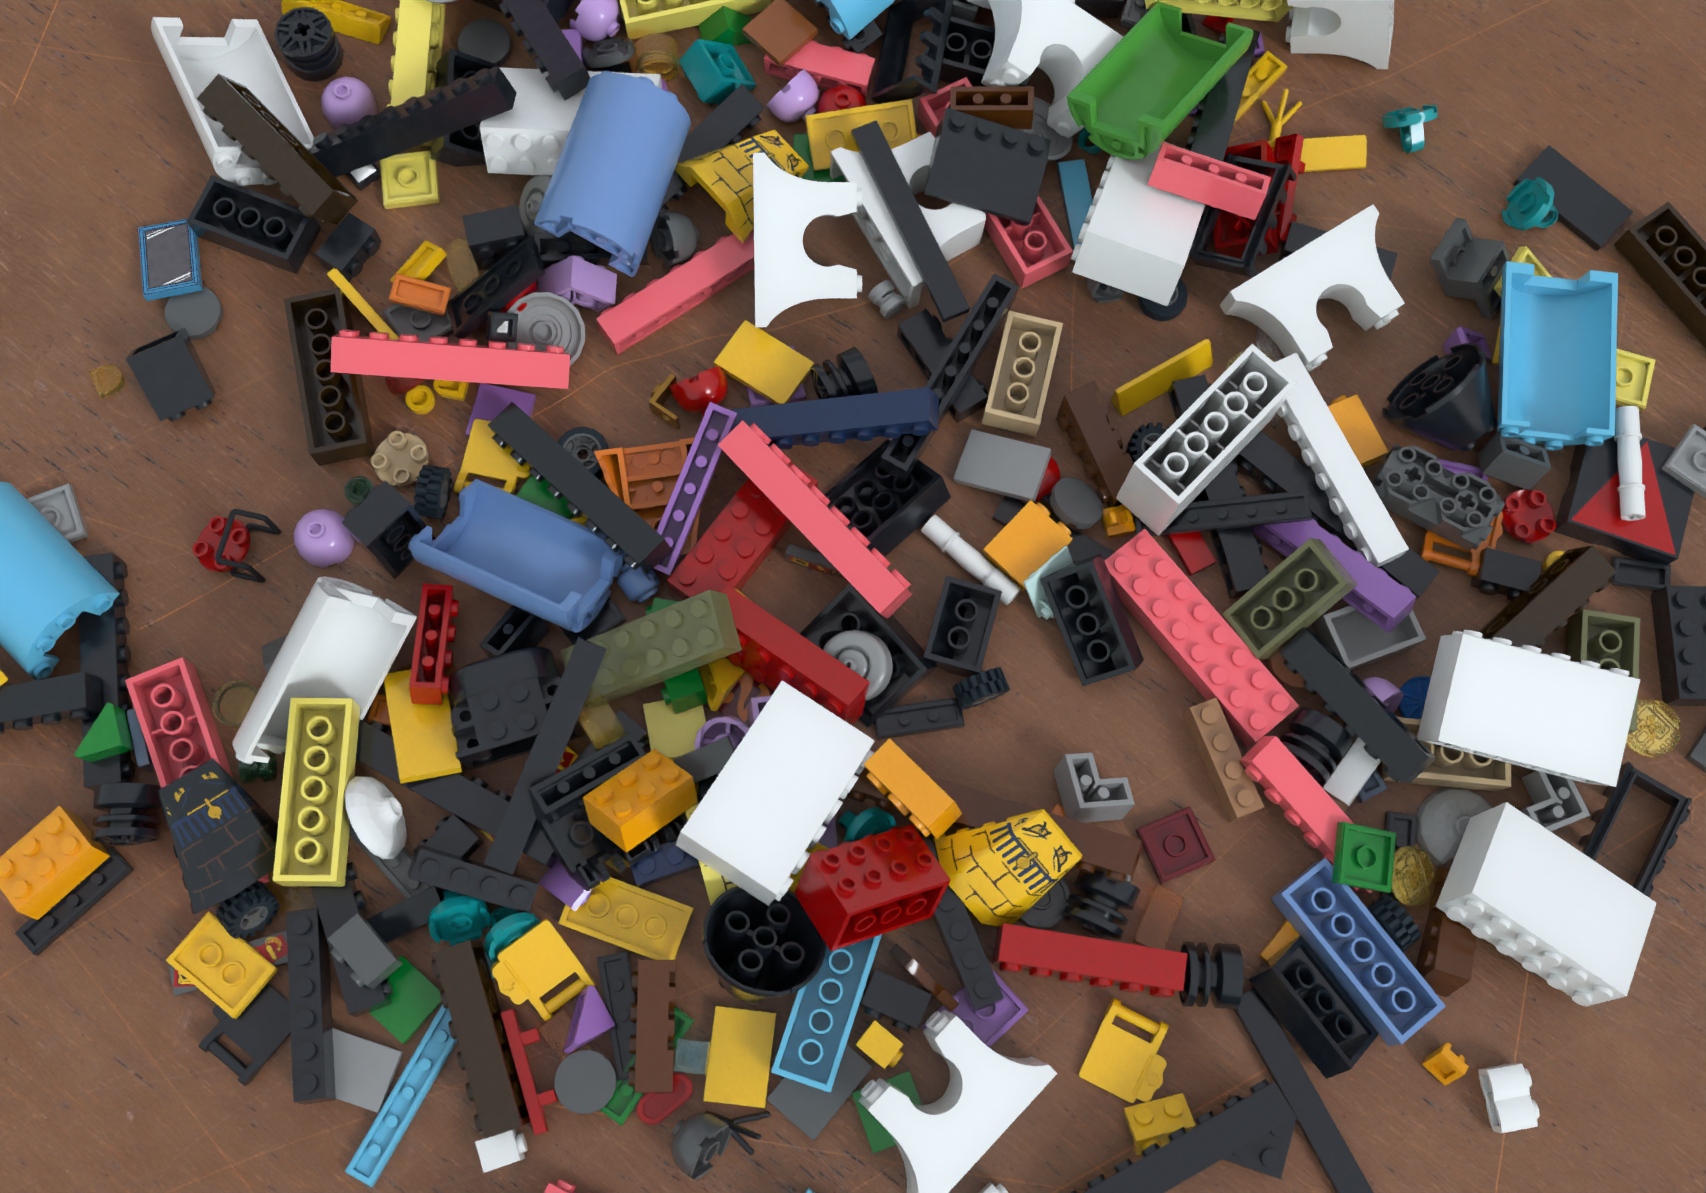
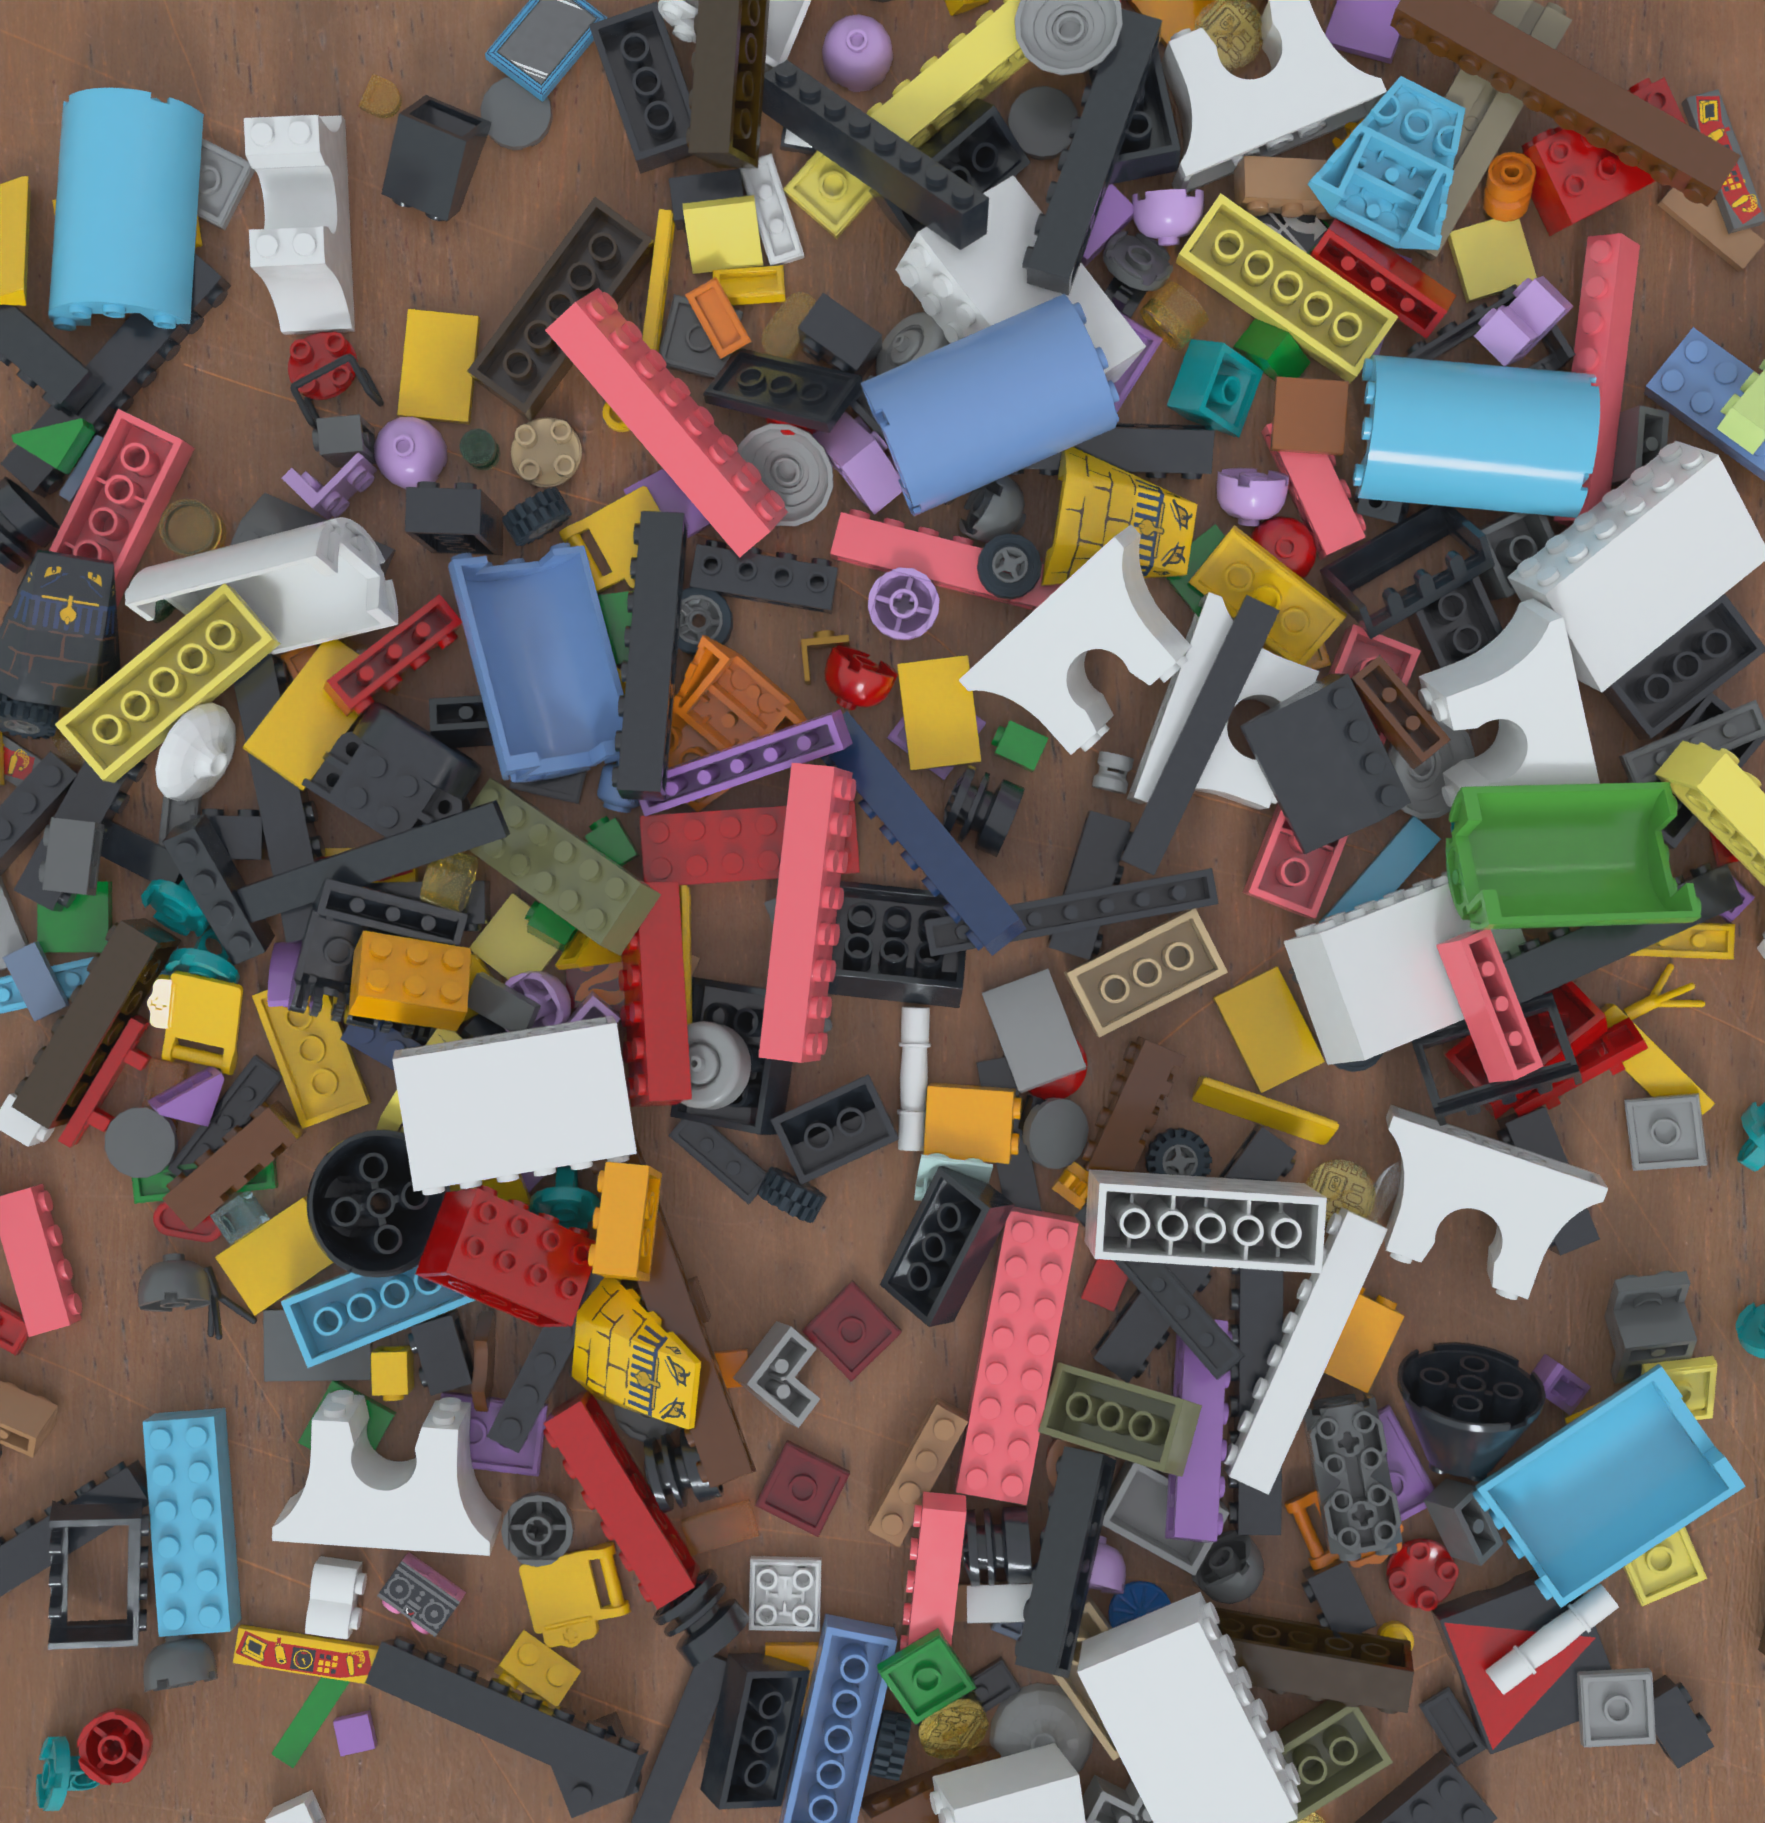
camera: 55 degrees right, 15 degrees up
(129, 472) = (307, 220): none -> white piece
(279, 563) = (342, 438): none -> dark grey brick
(284, 608) = (334, 496): none -> lavender bracket
(290, 477) = (435, 366): none -> yellow tile
(375, 252) = (723, 234): none -> light yellow tile
(392, 222) = (773, 212): none -> white tile
(420, 1059) = (36, 981): none -> sand blue tile
(502, 326) = (747, 434): black tile -> none
(594, 395) = (765, 578): none -> black brick
(682, 327) = (903, 604): none -> lavender cylinder
(708, 242) = (1014, 551): none -> black wheel
(824, 336) = (1019, 745): none -> green brick
(1045, 1157) = (421, 1595): none -> brick
(1064, 1032) = (538, 1528): none -> dark grey cylinder
(1098, 728) = (851, 1330): none -> dark red tile
(1115, 338) = (1268, 1029): none -> yellow tile
(1236, 913) = (785, 1593): none -> white tile
(1360, 174) = (1666, 1132): none -> light grey tile
(1438, 616) = (1231, 1569): none -> dark grey cylinder

